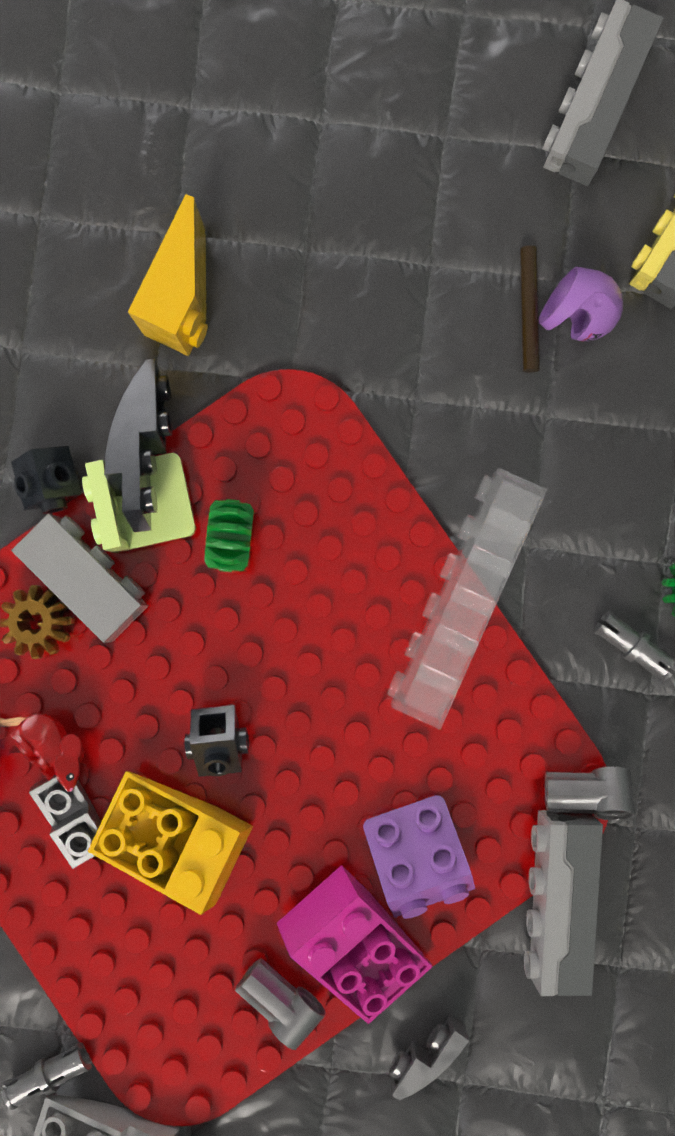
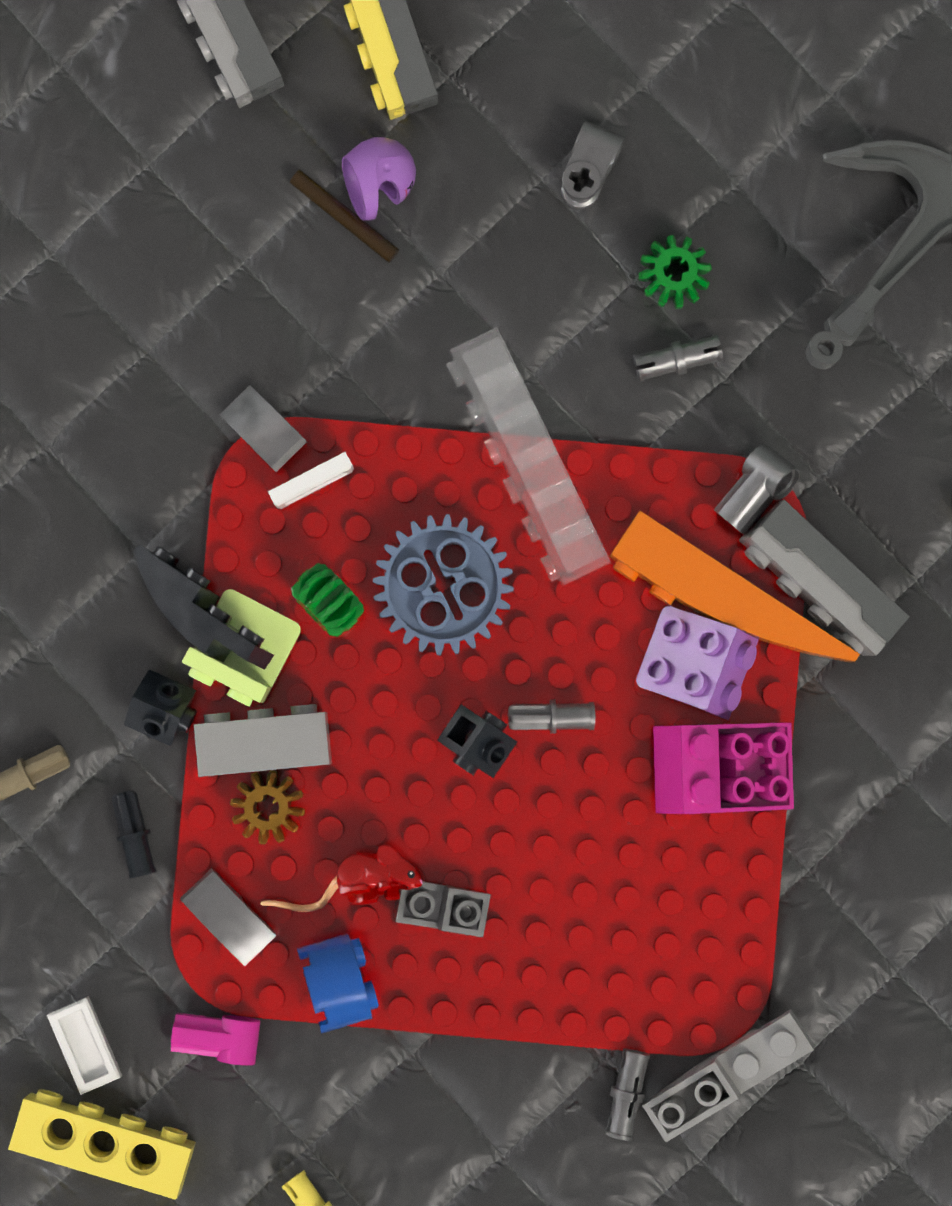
camera: 55 degrees left, 0 degrees up
(170, 841) = (523, 841): yellow slope -> none
(173, 293) = (105, 490): yellow slope -> none
(284, 780) = (551, 716): none -> flat silver axle
(289, 1010) = (730, 859): flat silver piece -> none
(310, 447) = (311, 481): none -> white tile
(320, 380) = (263, 428): none -> flat silver slope
(351, 629) = (407, 602): none -> sand blue gear
(420, 1066) = (857, 799): flat silver slope -> none
(485, 827) = (713, 590): none -> orange slope

